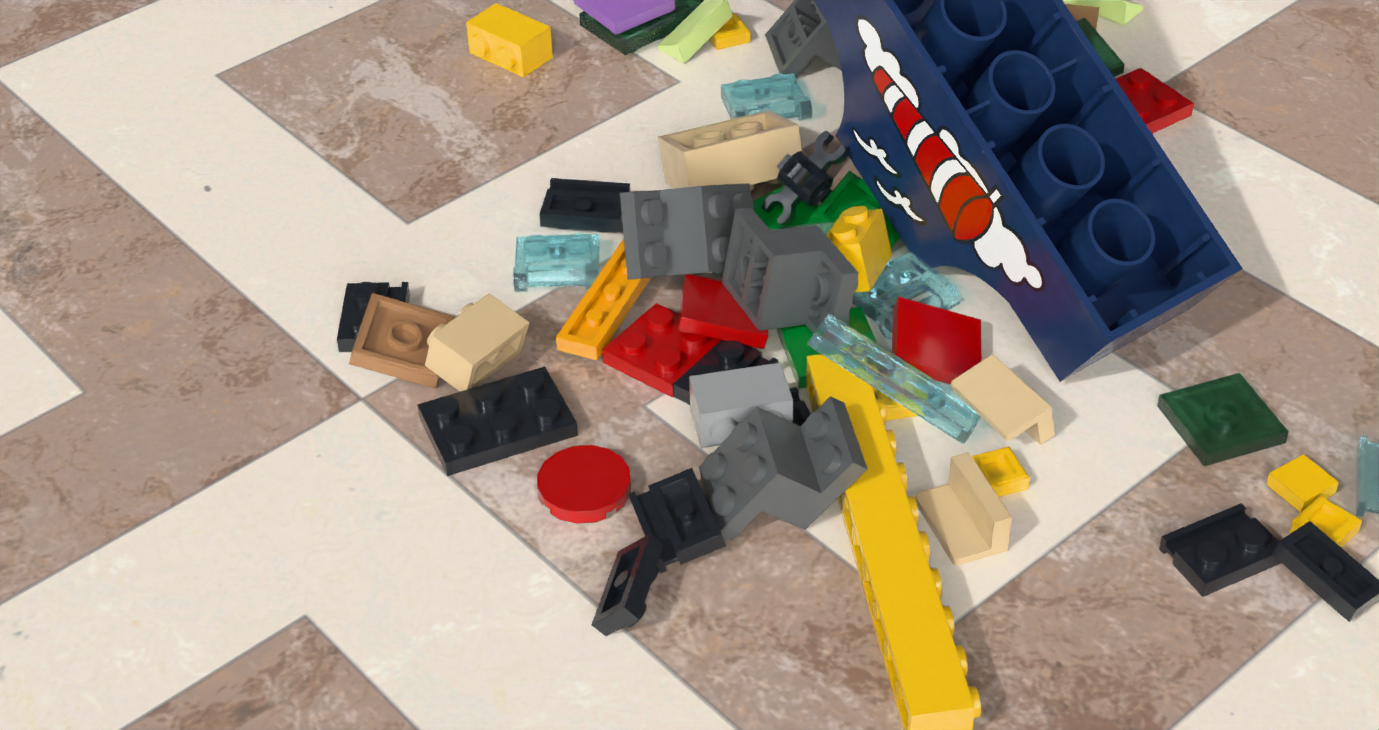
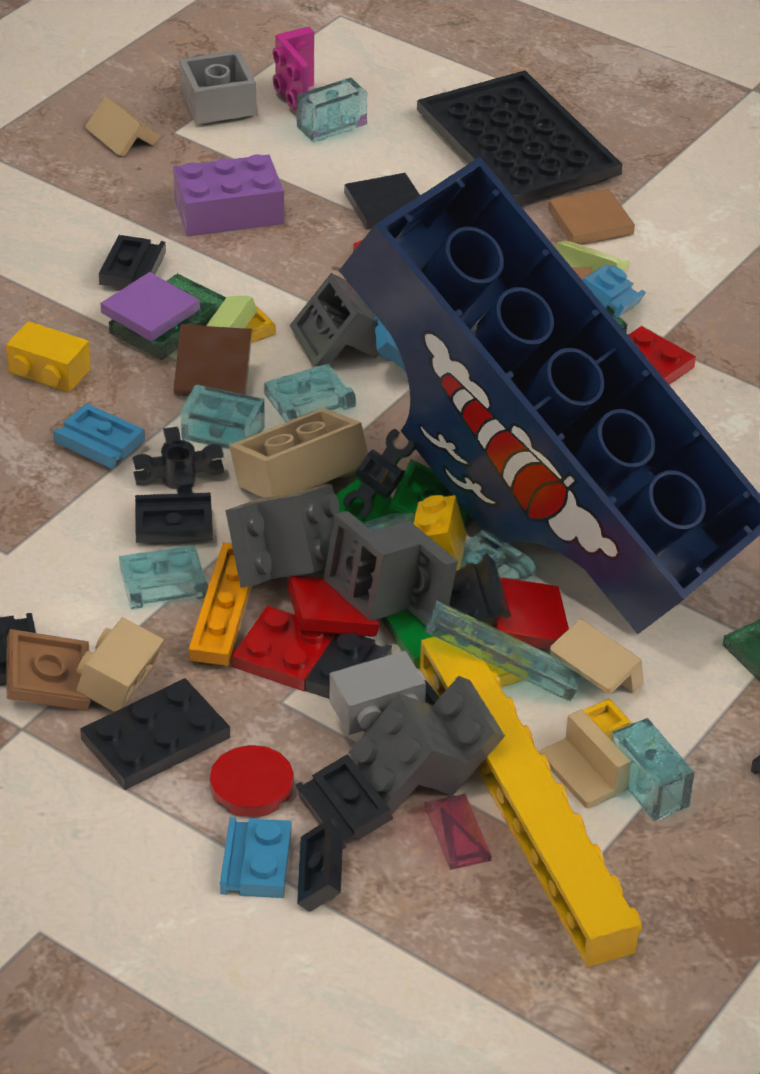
camera: 15 degrees left, 0 degrees up
(536, 118) = (99, 435): none -> dark azure plate
(563, 567) = (256, 857): none -> dark azure plate
(606, 152) = (178, 463): none -> black pin
(662, 109) = (221, 416): none -> clear light blue brick
(672, 59) = (212, 359): none -> reddish brown tile
(798, 570) = (457, 831): none -> clear pink slope
(884, 312) = (480, 592): none -> black plate
(1041, 532) = (657, 772): none -> clear light blue brick
(1114, 26) = (613, 289): none -> dark azure plate

